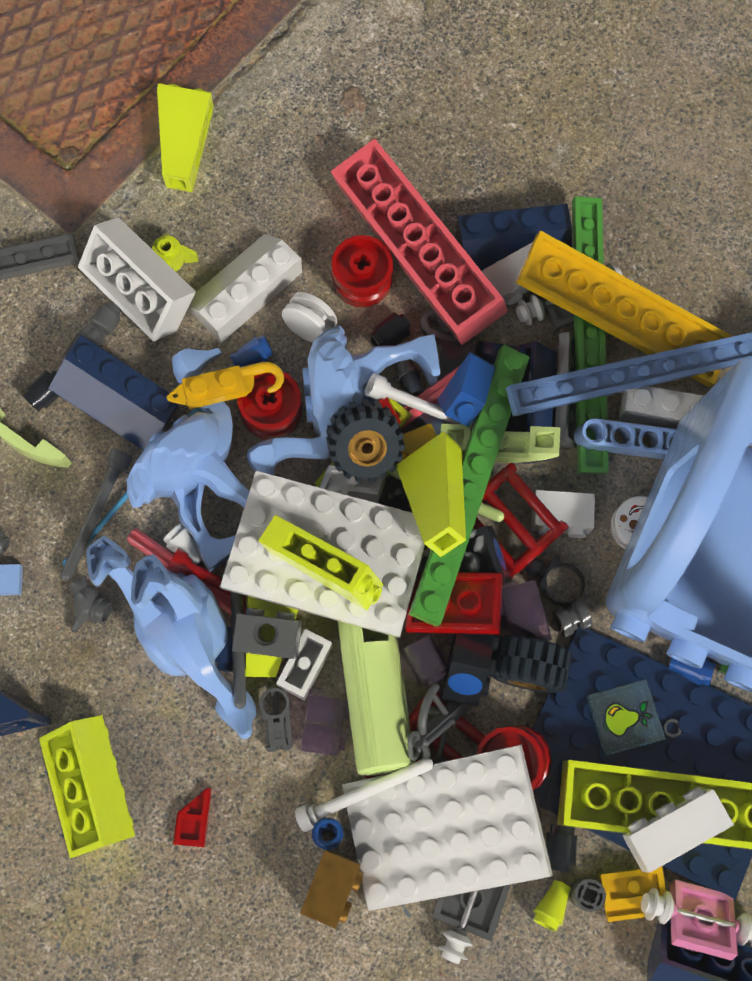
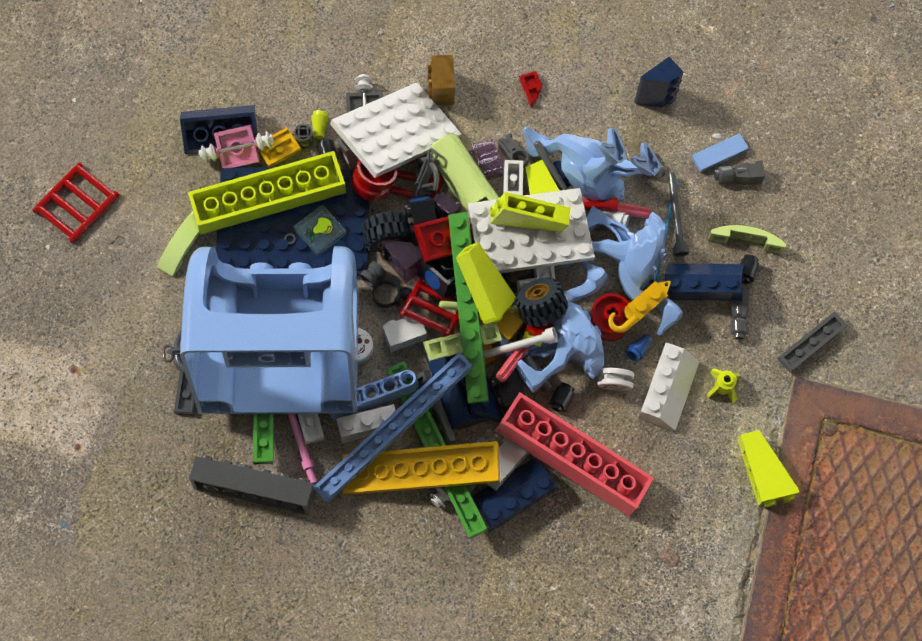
camera: 155 degrees right, 5 degrees down
(86, 786) = (596, 77): neon yellow slope -> none
(136, 279) = (733, 353): white brick -> none
(249, 639) = (540, 177): dark grey brick -> none
(309, 814) = (470, 112): white piece -> none
(327, 825) = (457, 103): blue cone -> none
(362, 271) = (601, 415): red wheel -> none
(467, 390) = (495, 358): blue slope -> none
(677, 829) = (273, 169): white brick -> none

